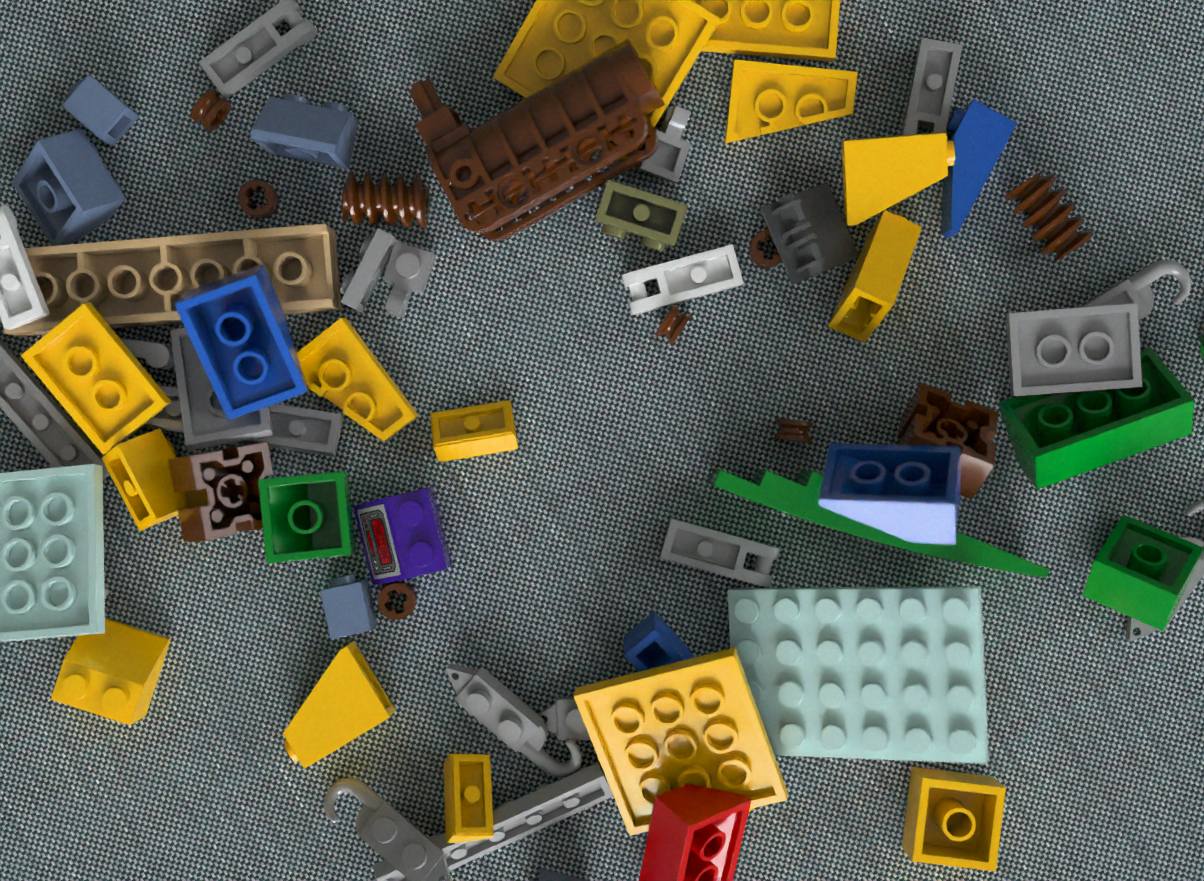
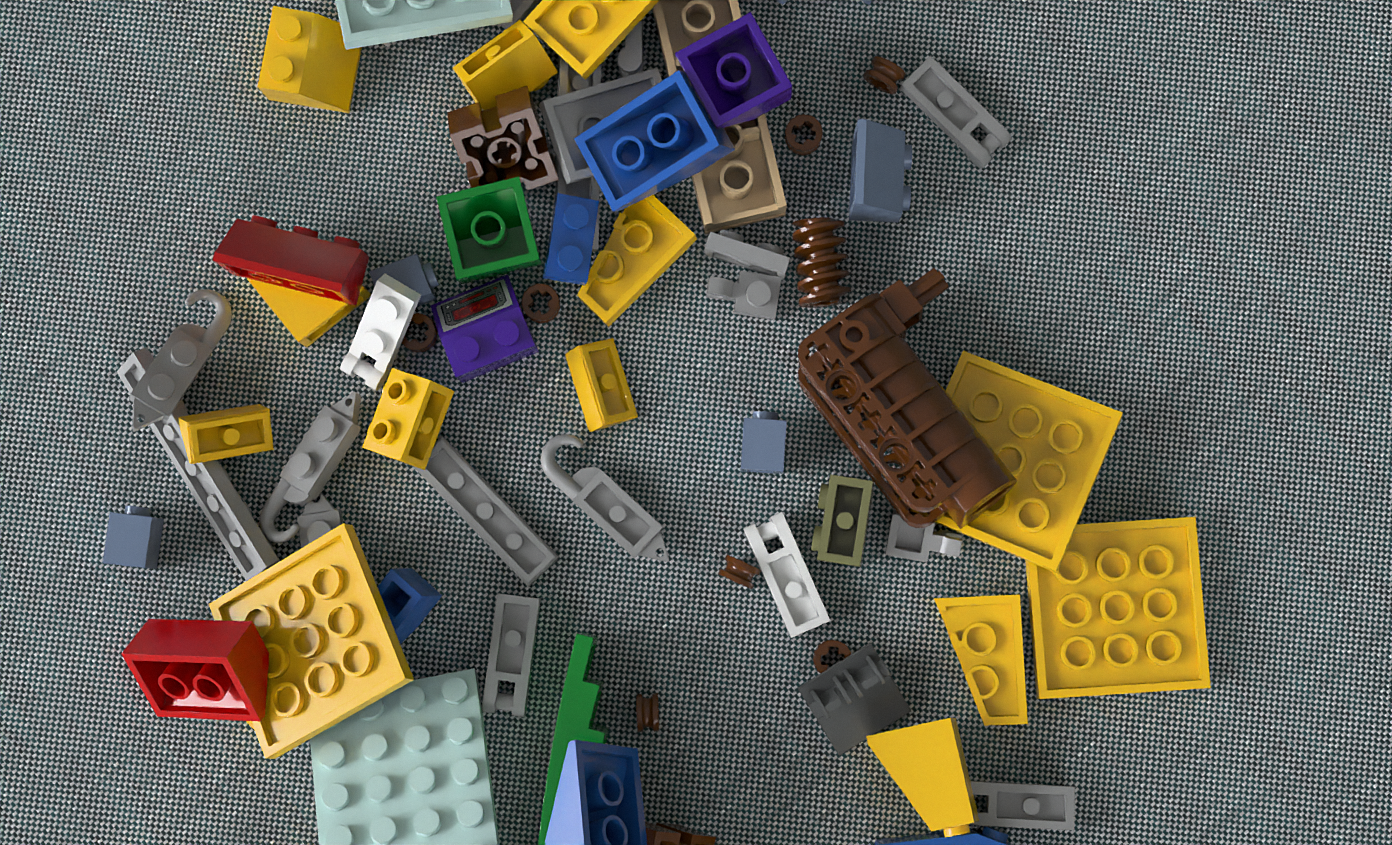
camera: 85 degrees right, 5 degrees down
(185, 249) = (735, 73): none -> dark purple slope
(307, 711) = (293, 259): none -> red slope
(328, 438) = (571, 239): none -> blue plate
(383, 490) = (527, 303): none -> reddish brown bush
(390, 635) = (381, 331): none -> white plate
(480, 620) = (408, 418): none -> yellow brick
(554, 282) = (763, 443): none -> sand blue brick
(579, 559) = (487, 513): none -> light grey tile
(588, 442) = (605, 503): none -> light grey plate
(876, 277) = (819, 774): yellow slope -> none

